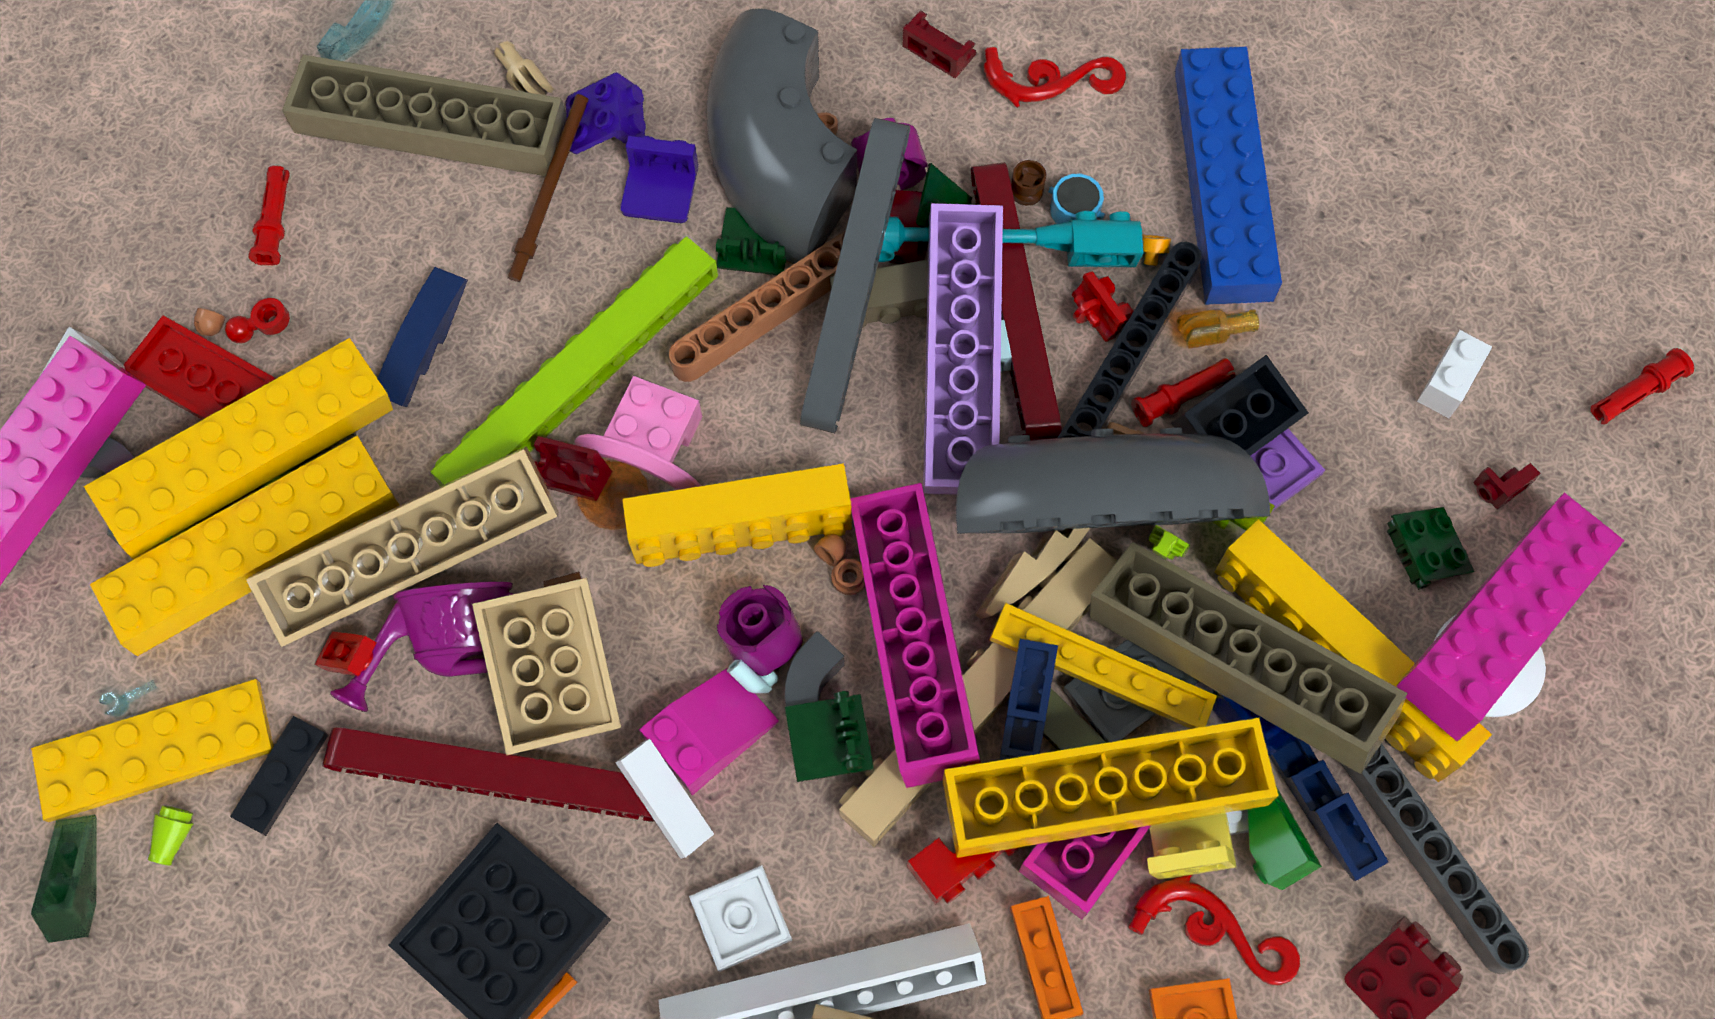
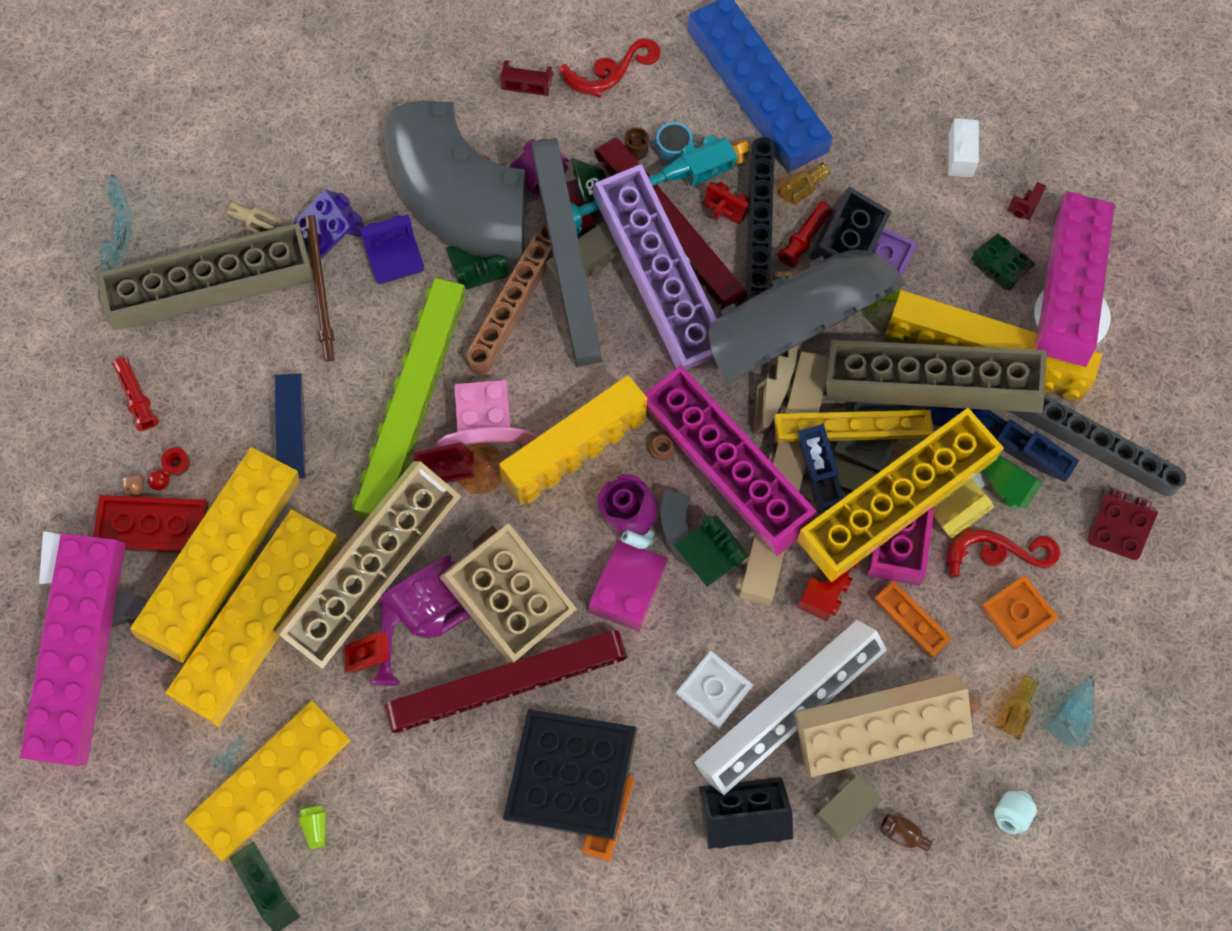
camera: 30 degrees left, 0 degrees up
(279, 776) = (364, 753): black plate -> none
(665, 798) = (628, 639): white tile -> none
(831, 549) = (641, 436): nougat hinge -> none
(1166, 544) = (851, 331): lime hinge -> none
(1653, 379) = (1079, 98): red pin -> none

